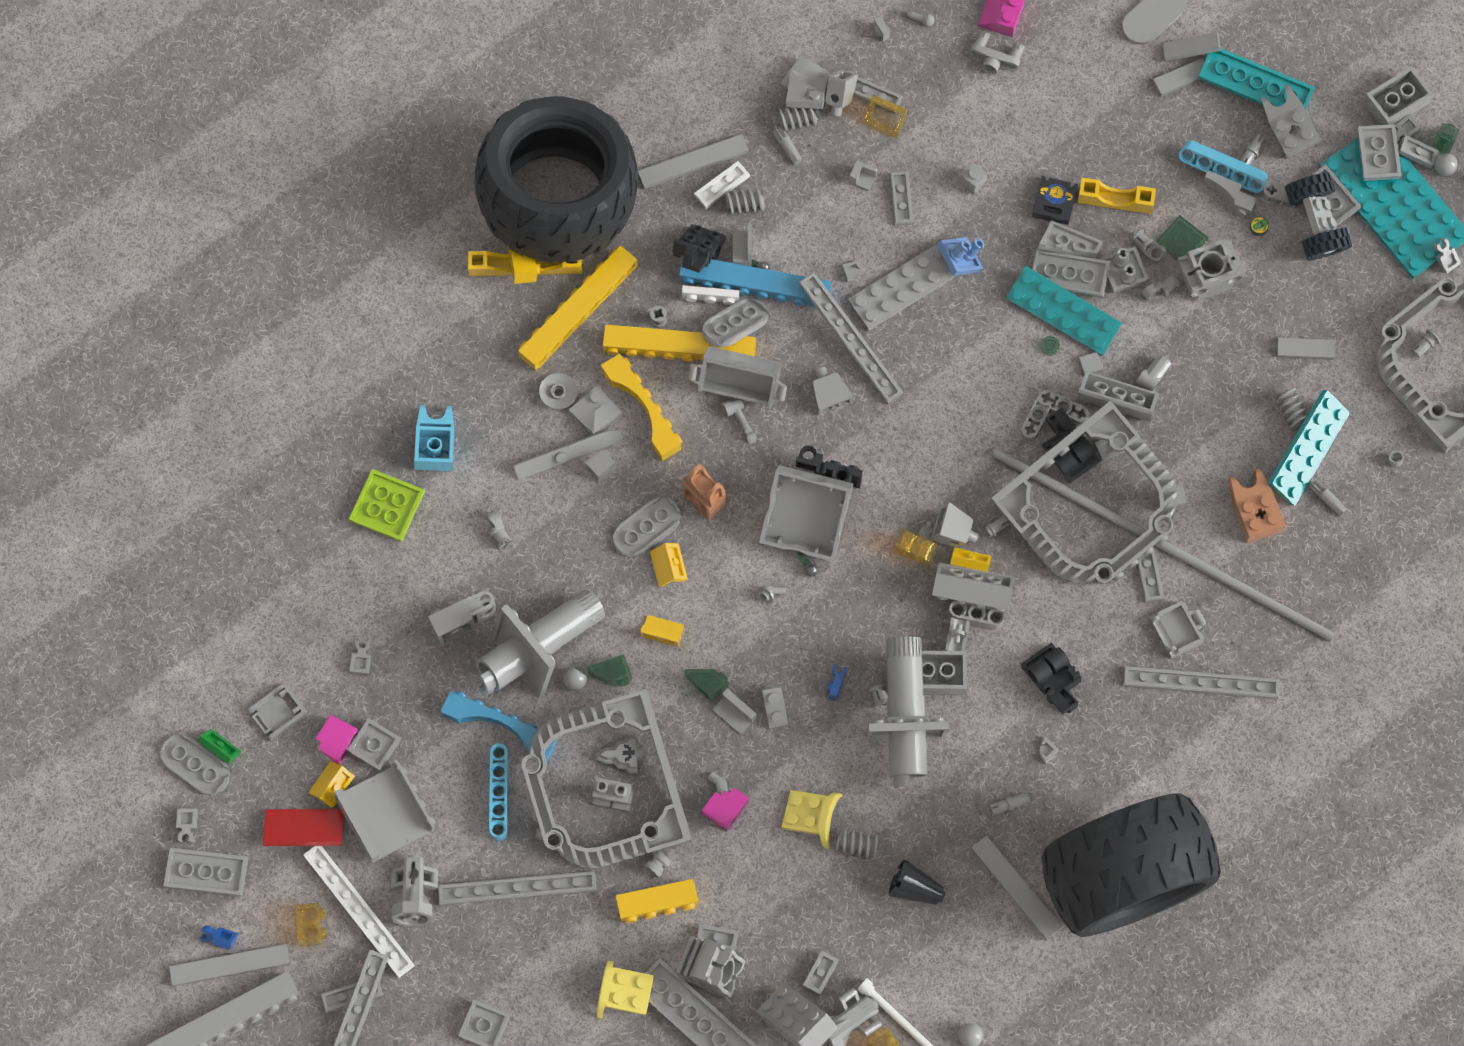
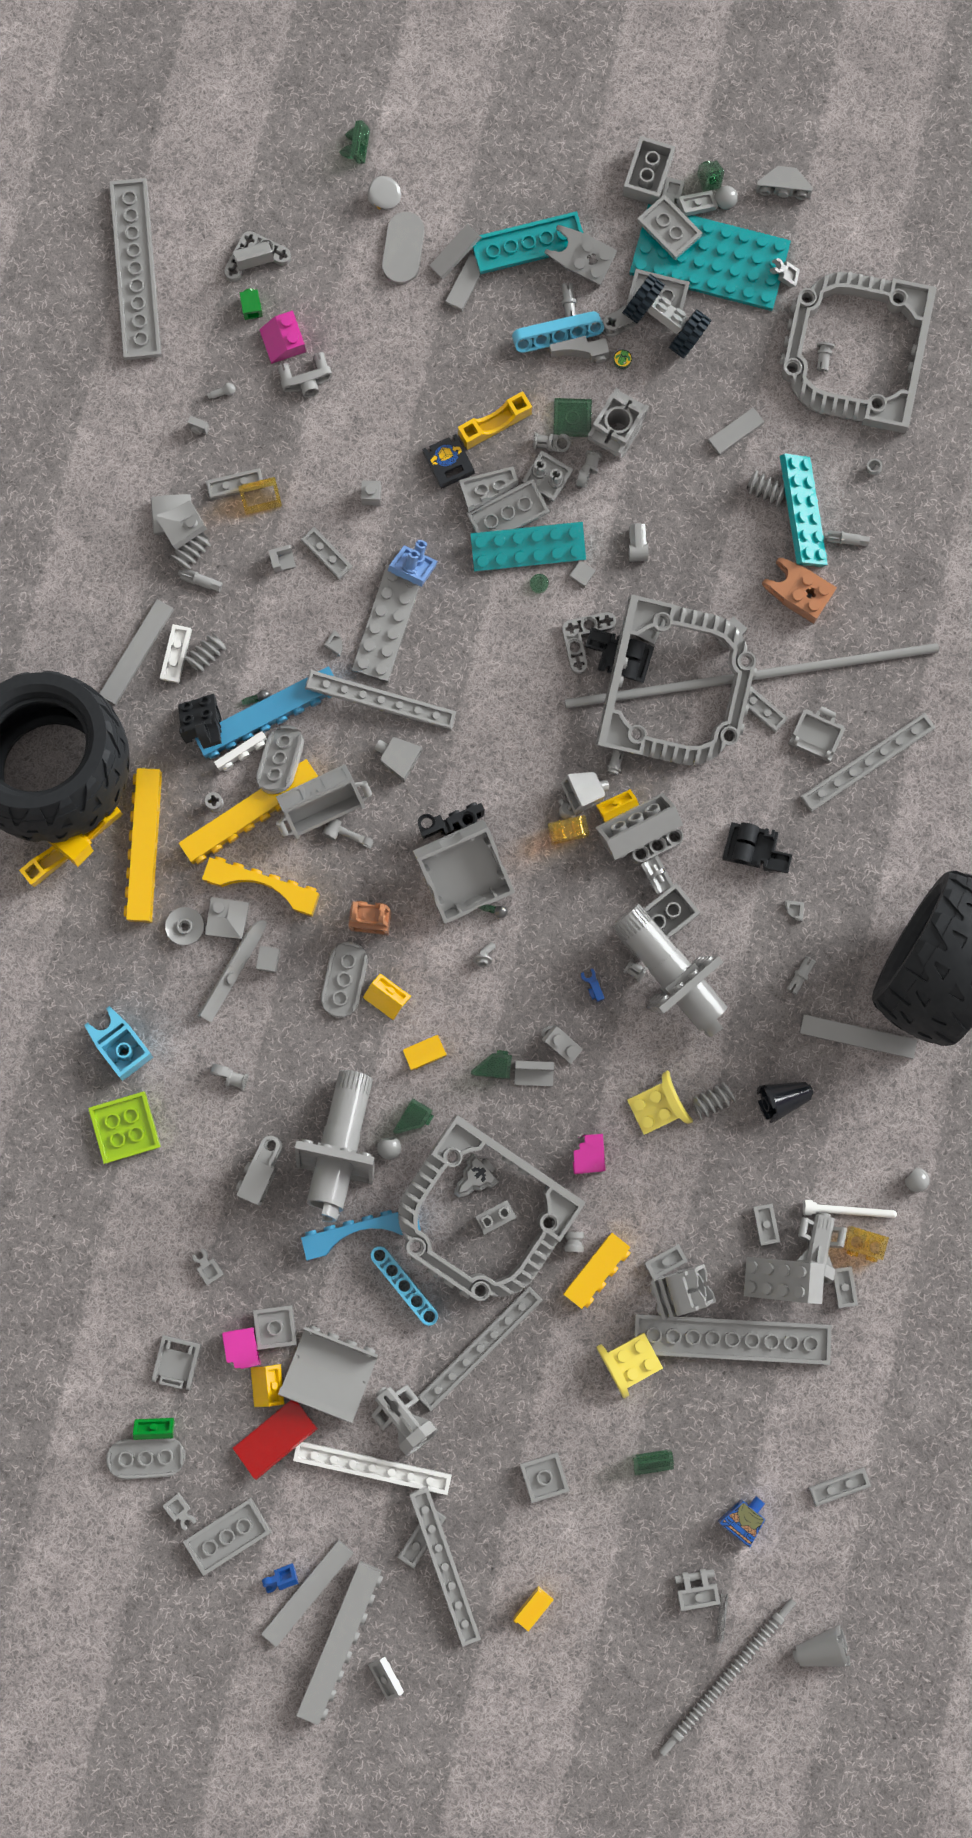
camera: 40 degrees left, 10 degrees up
(305, 925) = (339, 1515): clear yellow brick -> none
(721, 784) = (569, 1138): light grey arm -> none
(742, 247) = (234, 692): light grey panel -> none
(840, 90) = (208, 502): light grey torso -> none
(1126, 397) = (628, 581): light grey slope -> none

